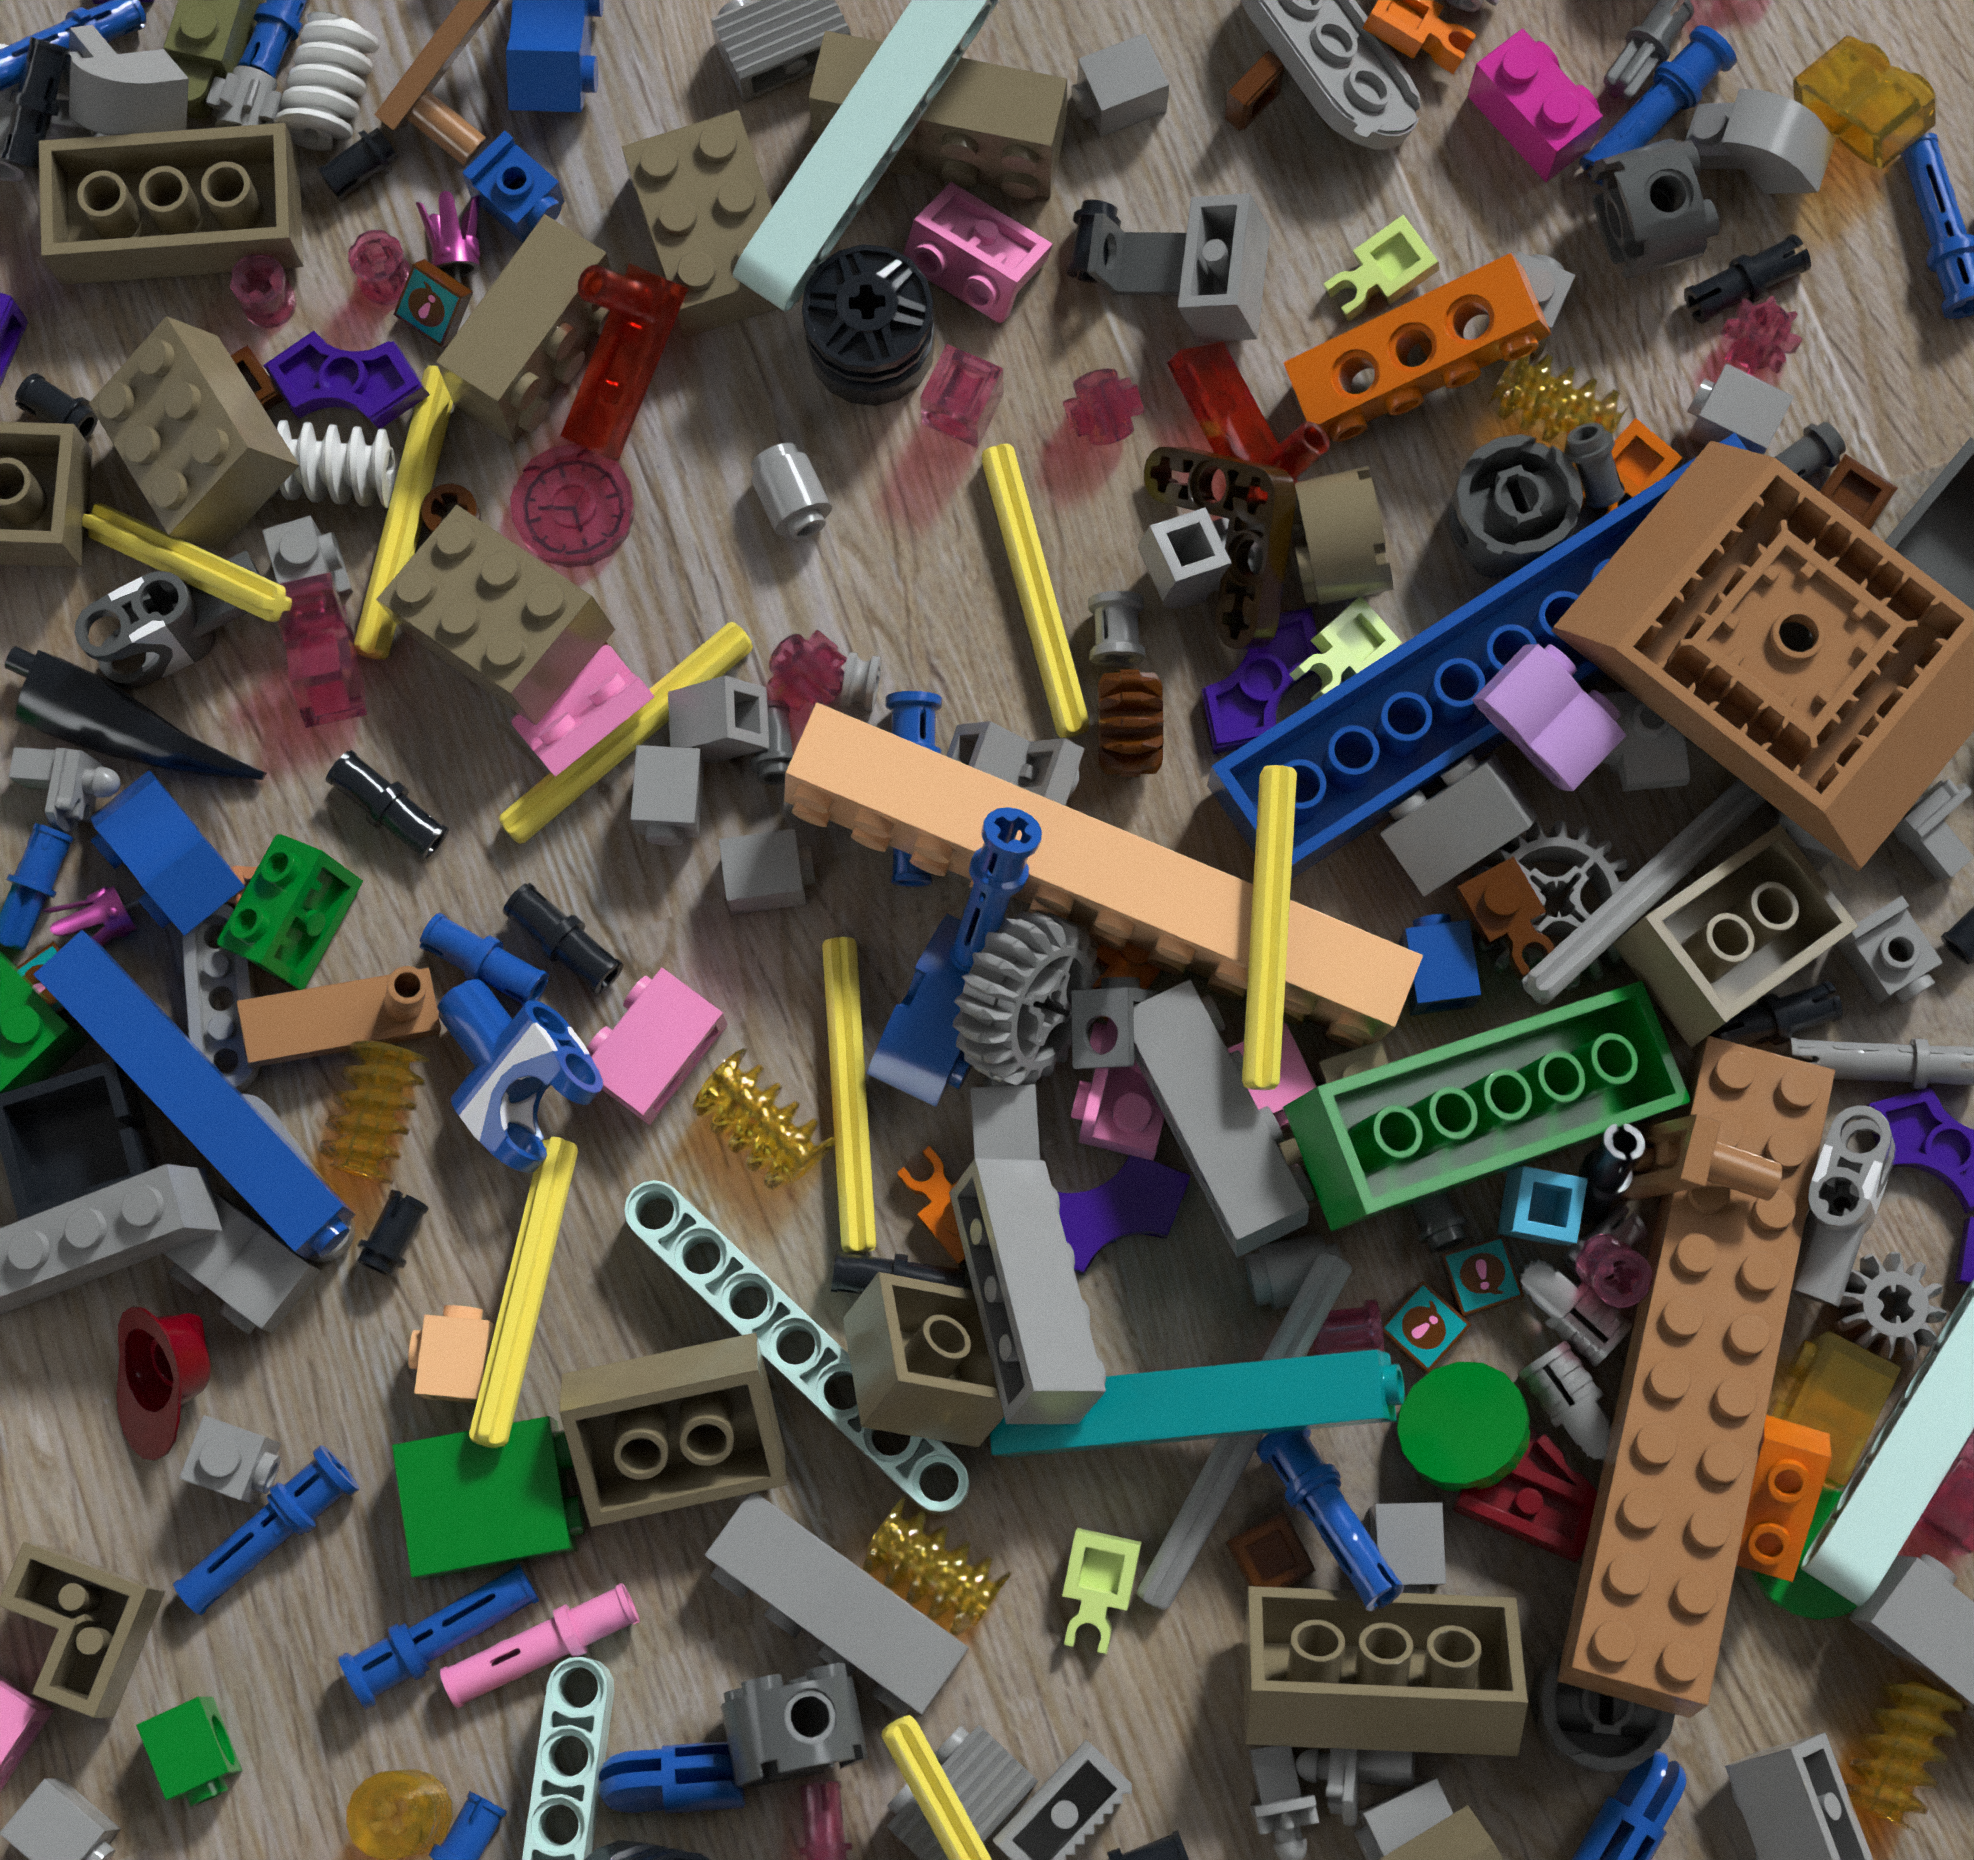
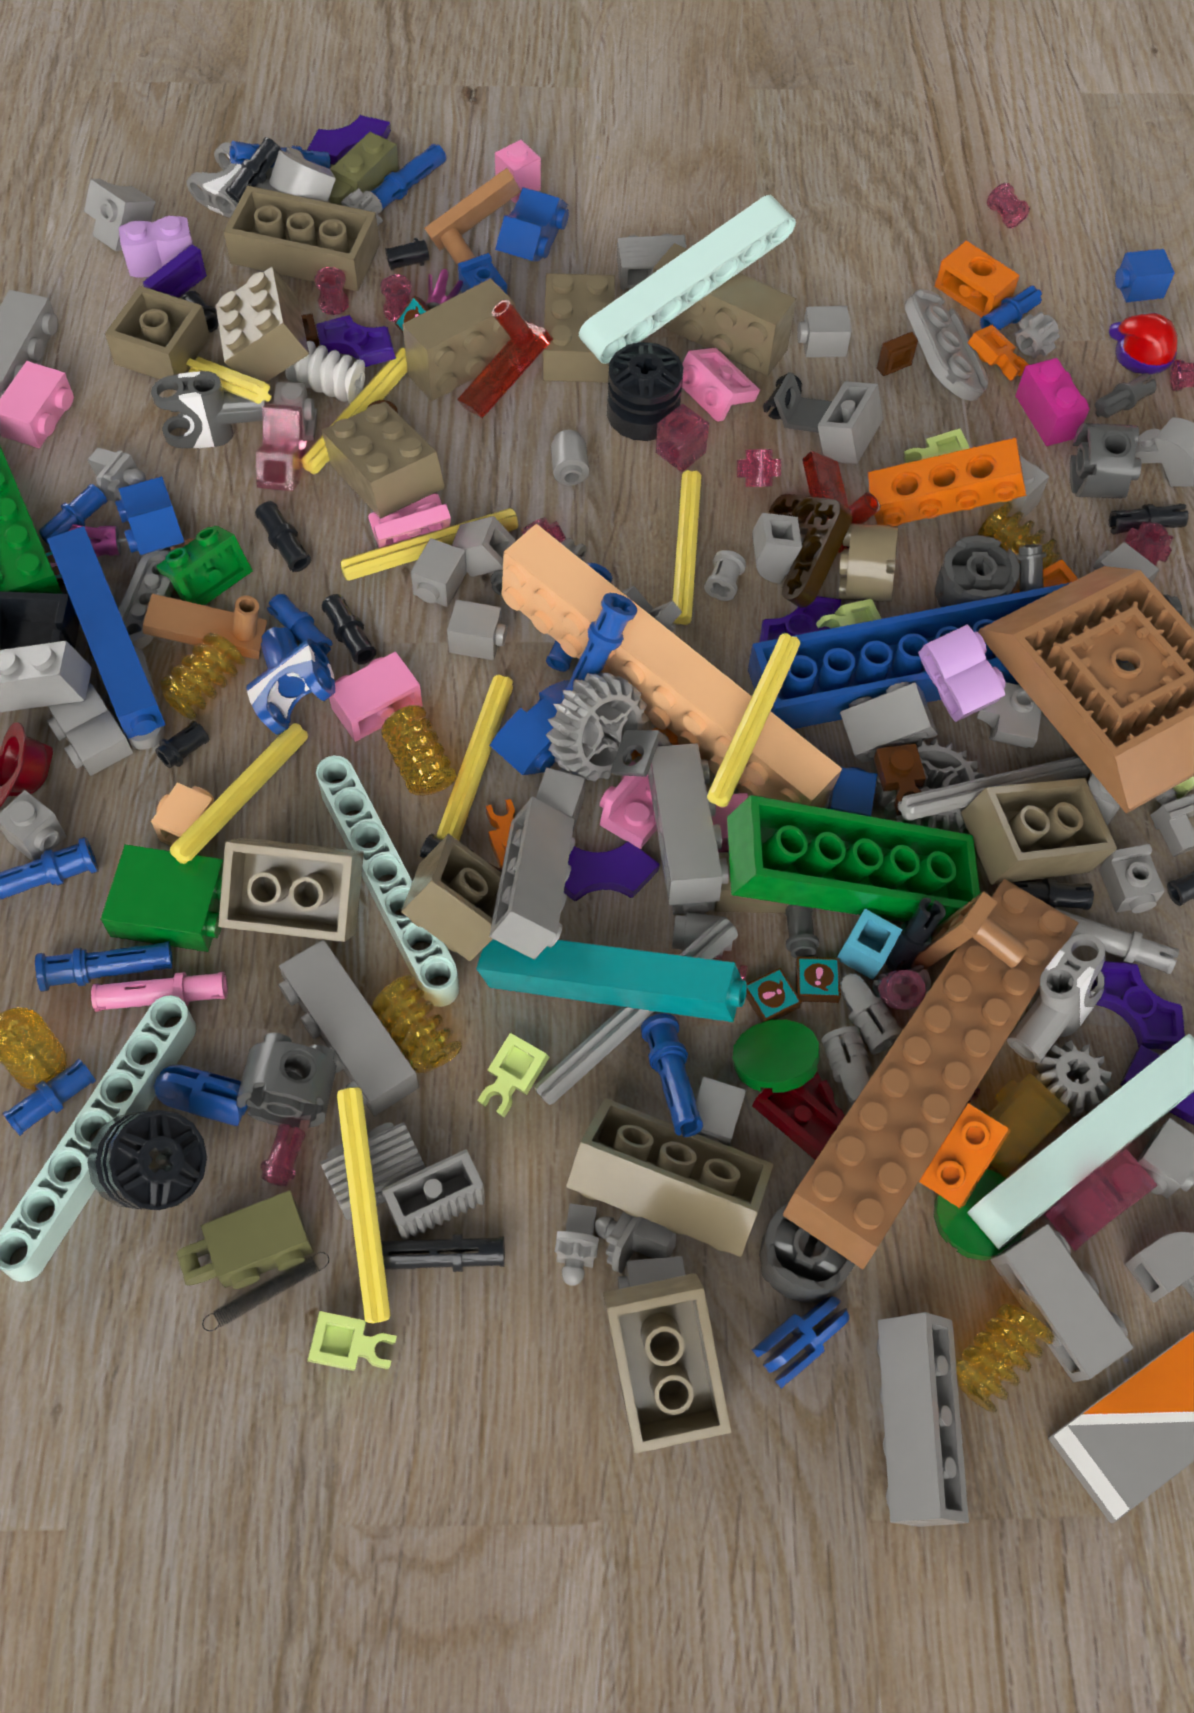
camera: 15 degrees right, 15 degrees down
(103, 718) = (143, 440): black piece -> none
(324, 79) = (407, 213): white piece -> none
(572, 506) = (452, 432): clear pink tile -> none
(1130, 723) = (714, 617): reddish brown gear -> none
(1271, 1554) = (629, 1090): reddish brown tile -> none
(1674, 88) = (1142, 414): blue pin -> none

